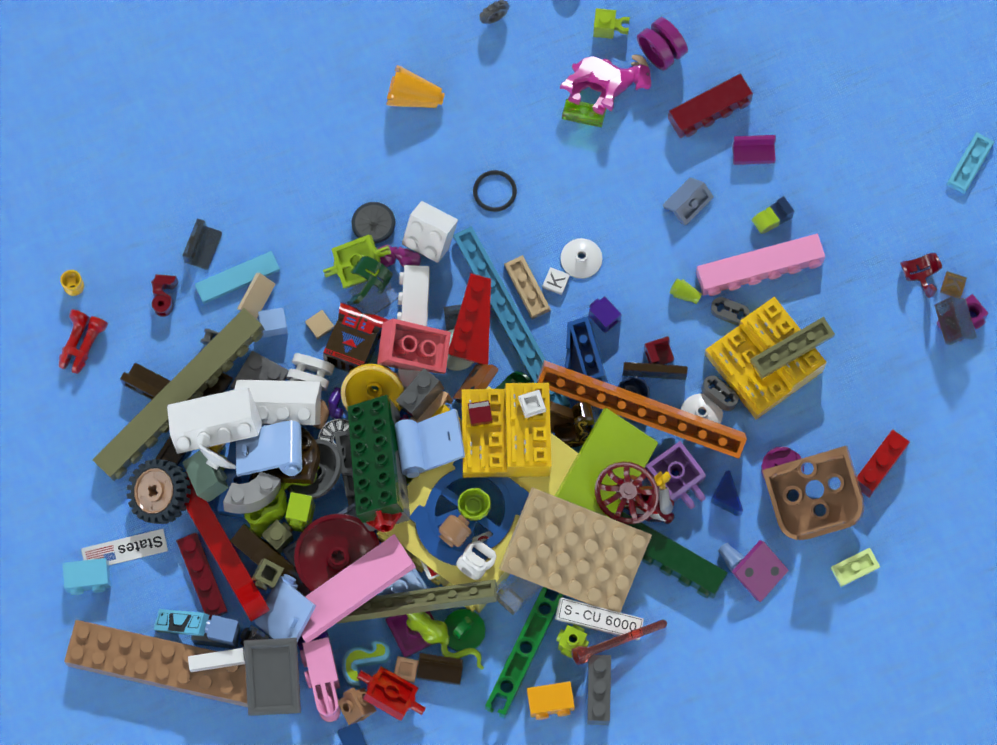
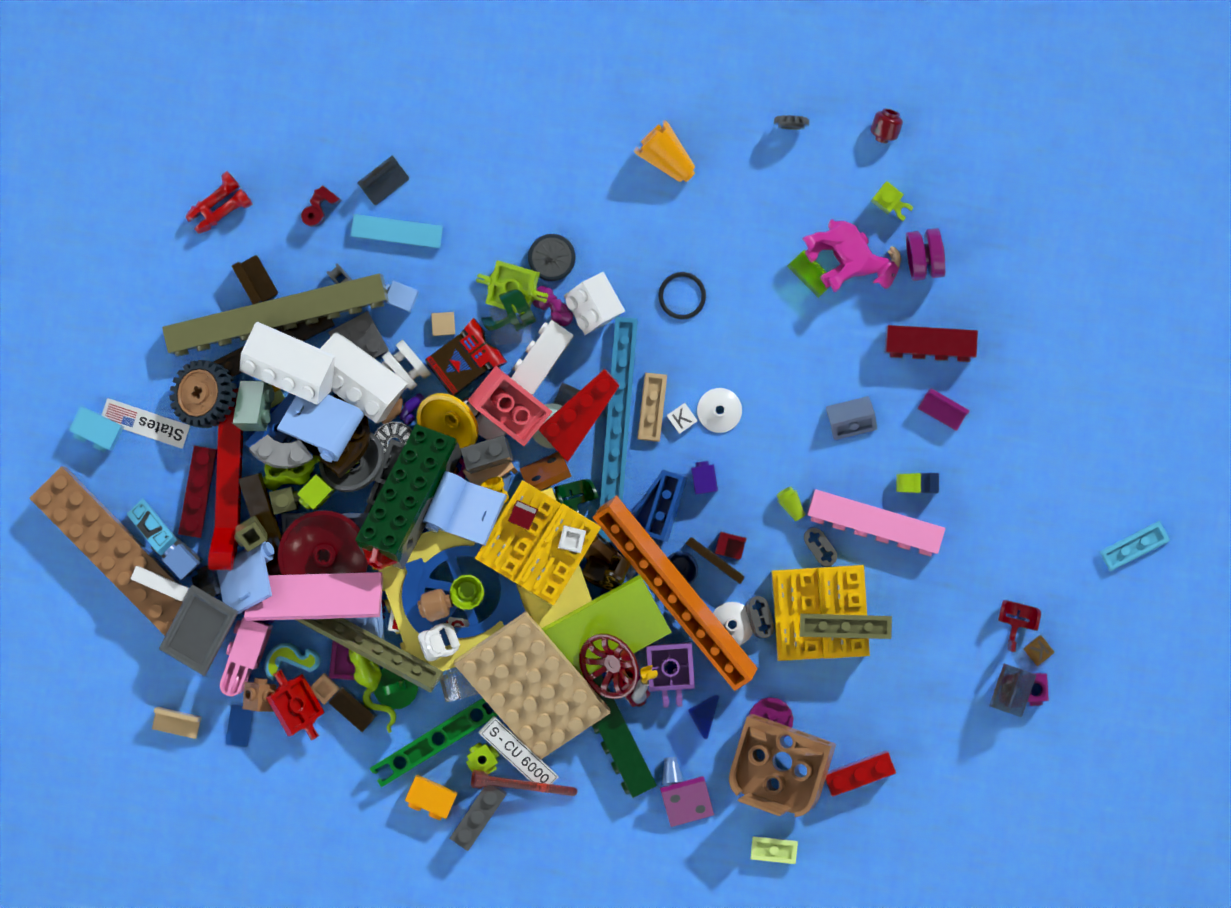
camera: 30 degrees right, 15 degrees up
(69, 279) = (240, 143): yellow wheel -> none
(215, 460) = (268, 401): white dish -> none
(256, 294) = (402, 261): tan tile -> none

